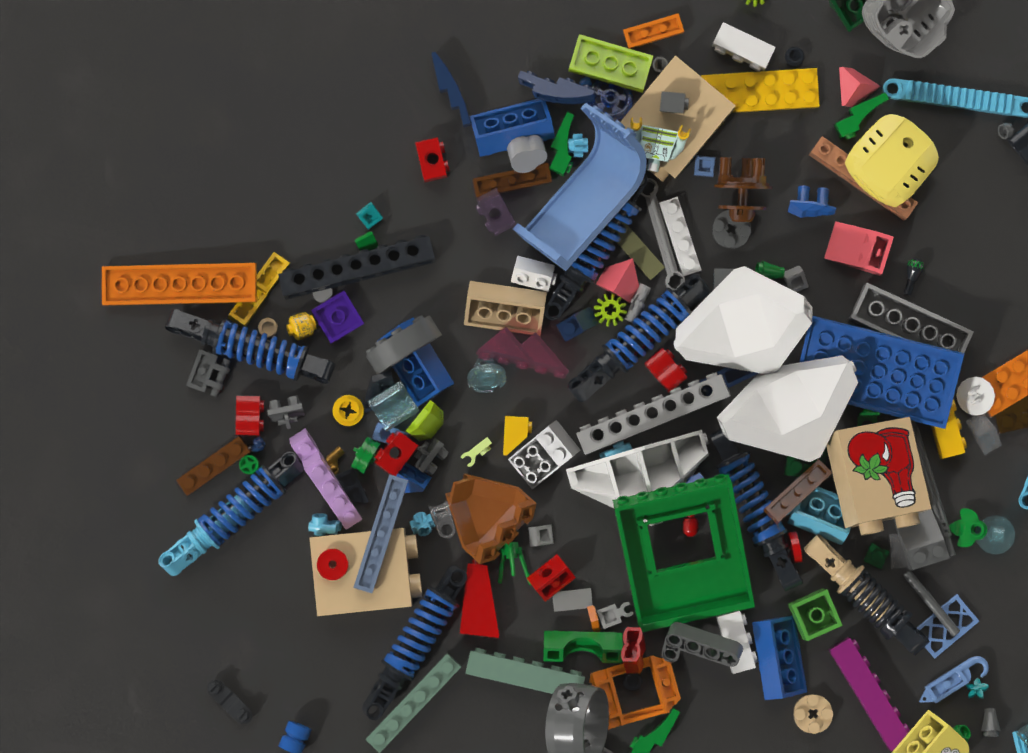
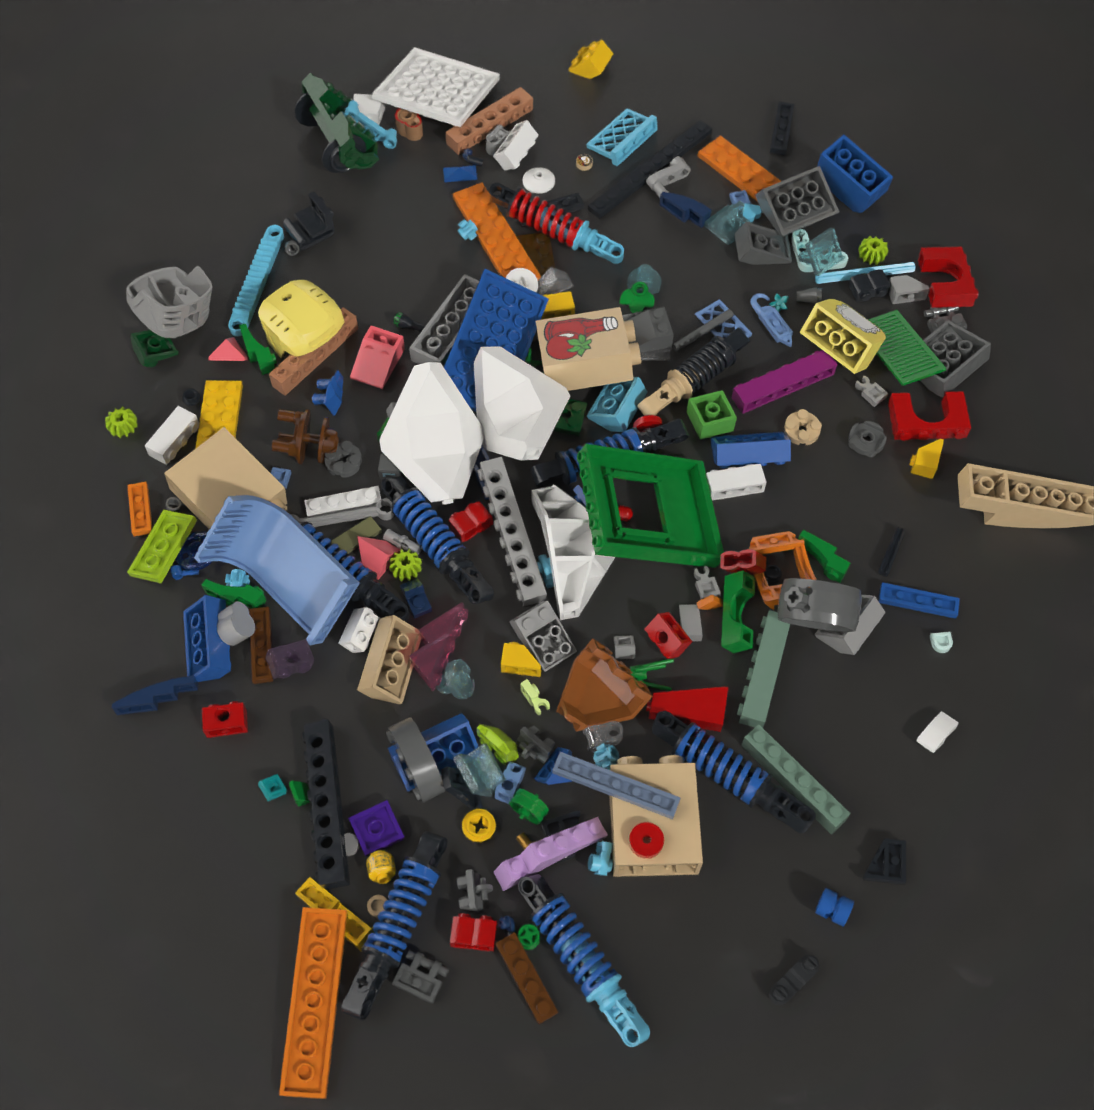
camera: 85 degrees left, 25 degrees down
(405, 447) = (527, 762): red brick -> none
(563, 92) = (181, 588): dark blue slope -> none
(659, 143) = (247, 483): torso -> none
(673, 102) = (209, 475): dark grey brick -> none
(700, 643) = (736, 505): dark grey beam -> none
(797, 491) = (597, 413): reddish brown plate -> none
(876, 556) = (658, 369): dark green plate -> none

